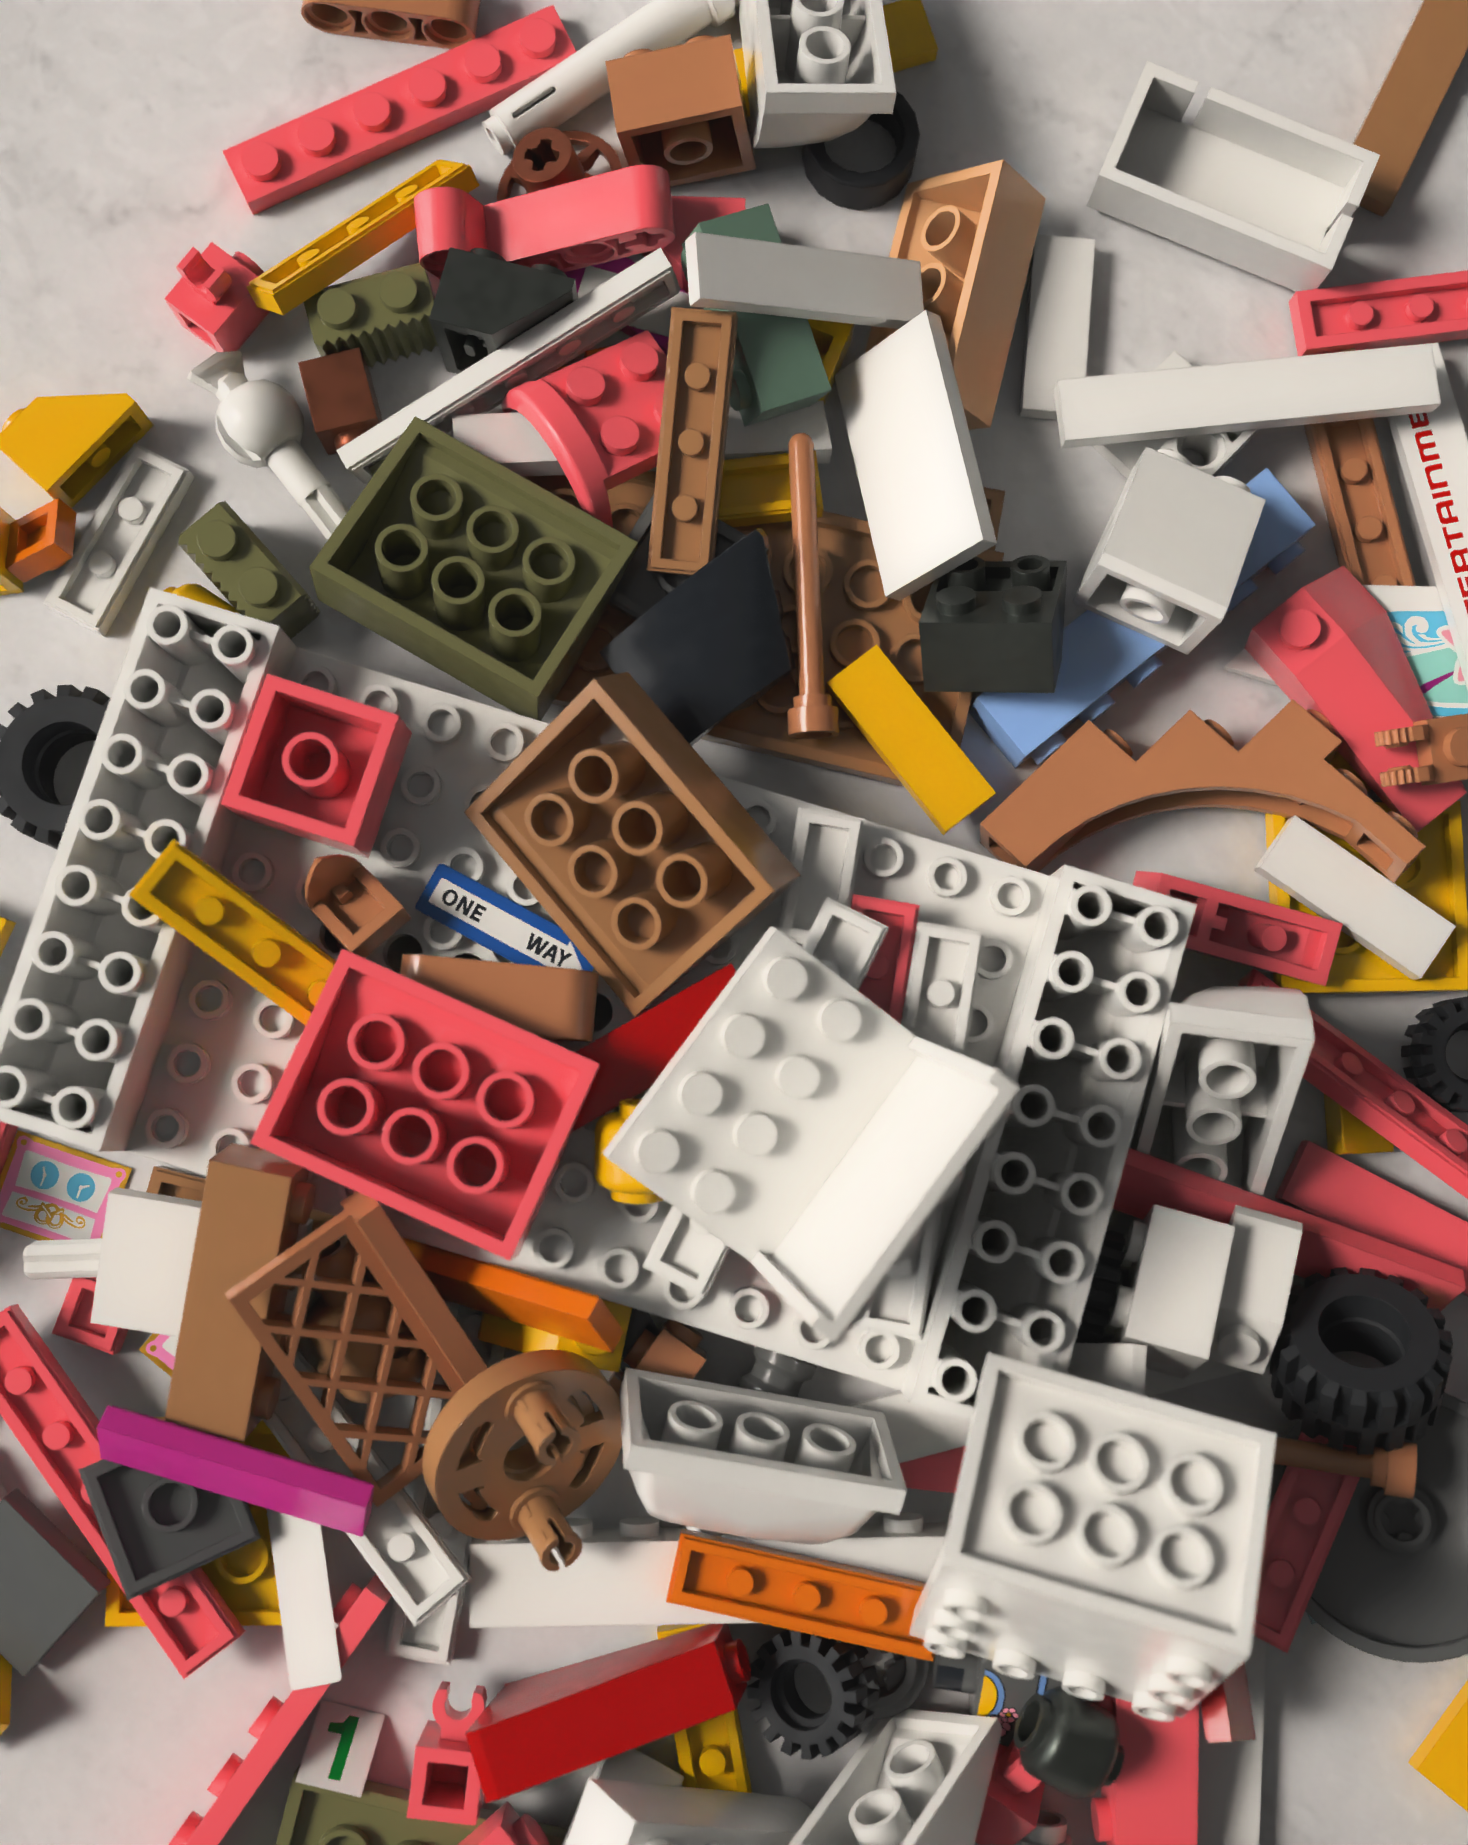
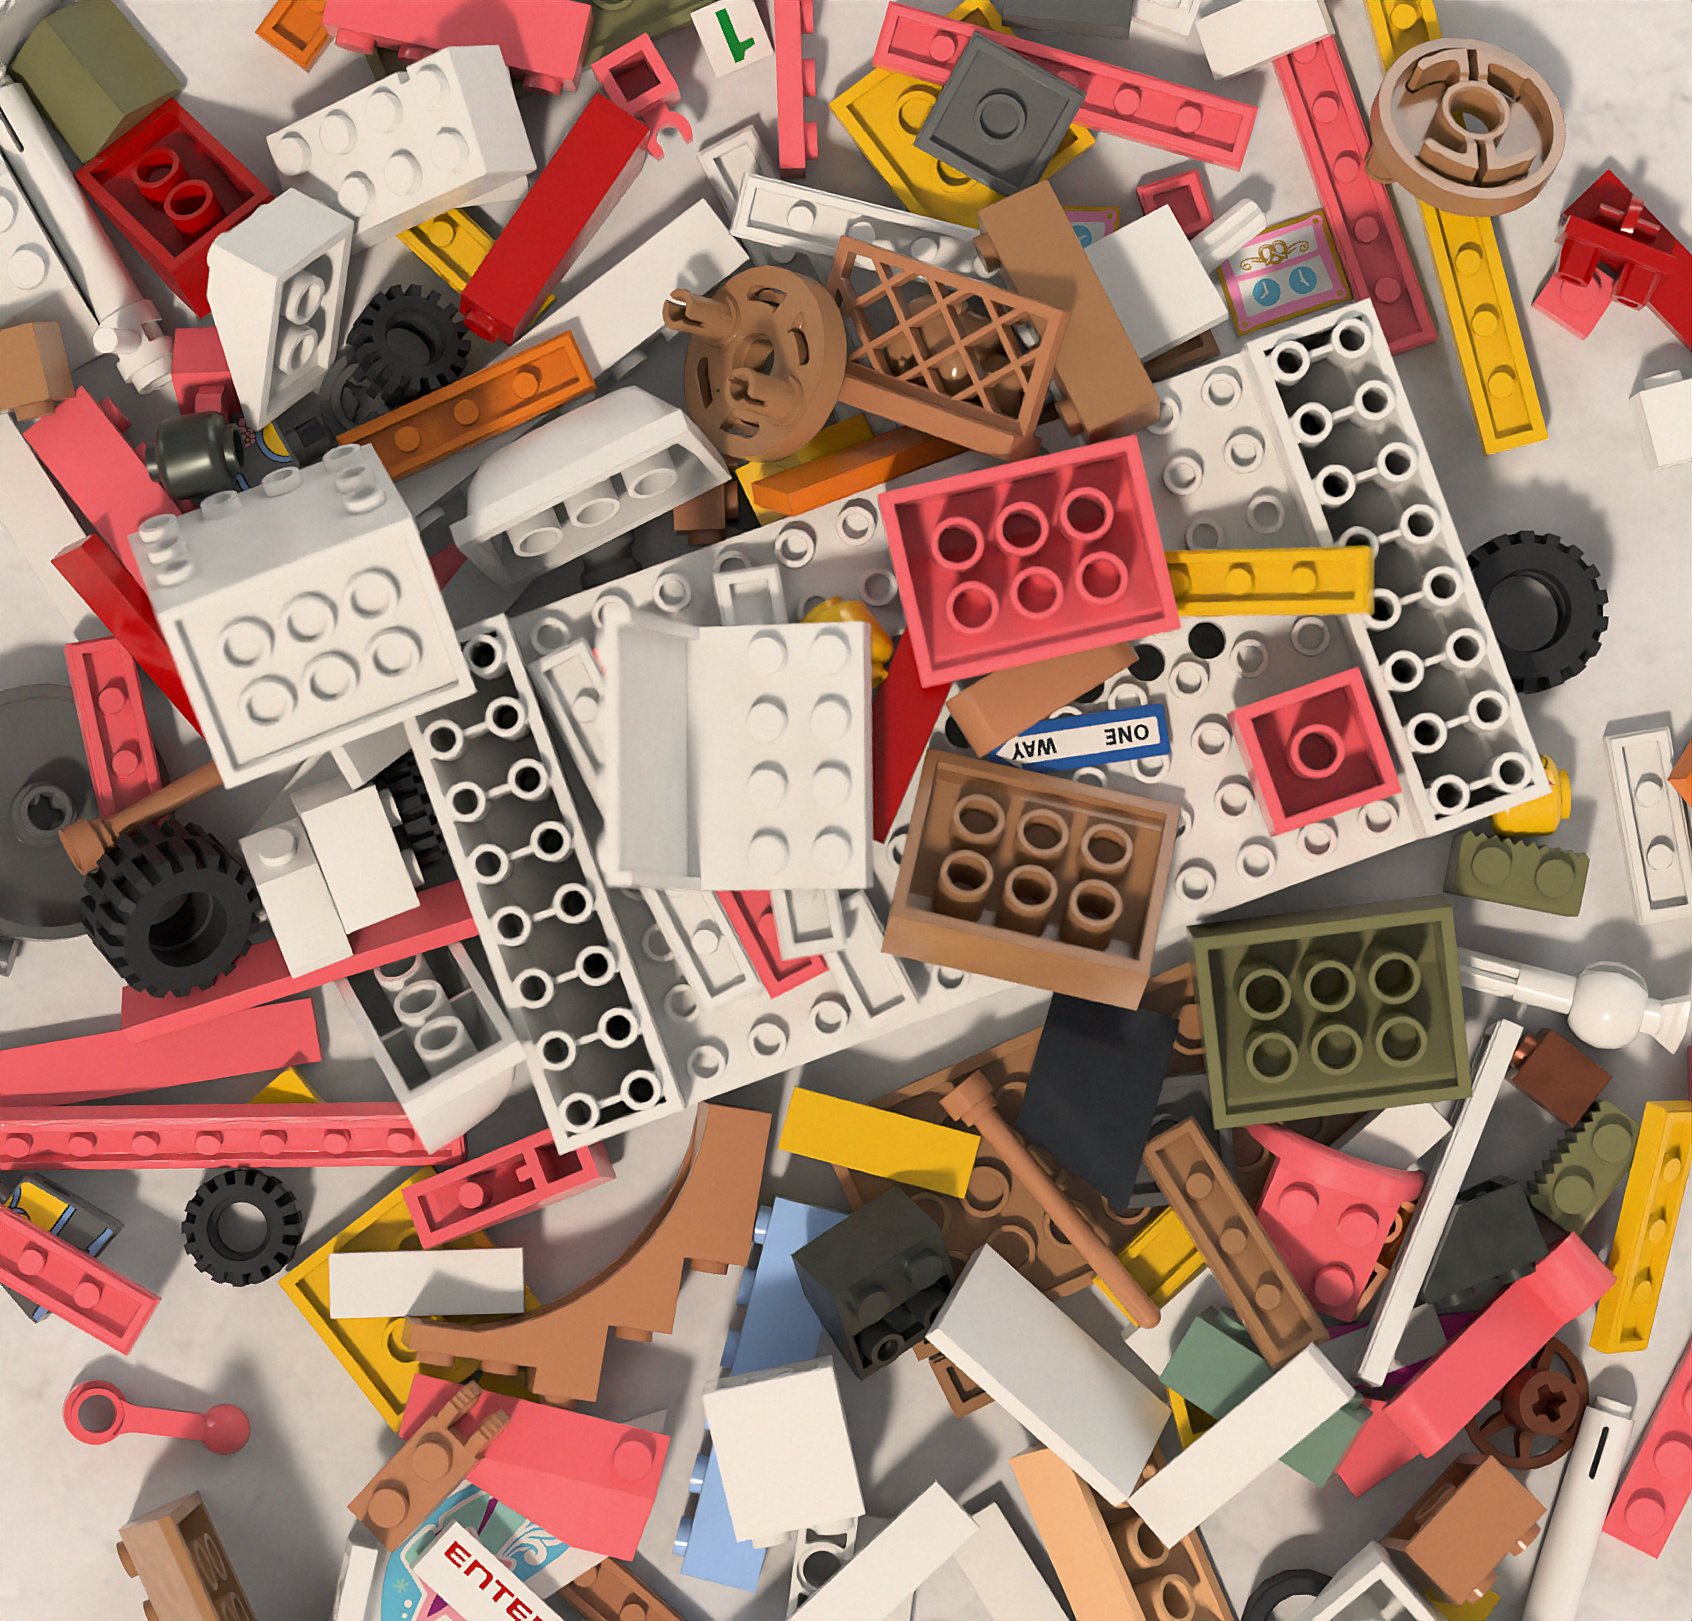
camera: 150 degrees right, 5 degrees up
(235, 1470) = (967, 184): dark pink tile -> none
(304, 1601) = (852, 132): white sticker -> none
(352, 903) = (1206, 668): nougat plate -> none

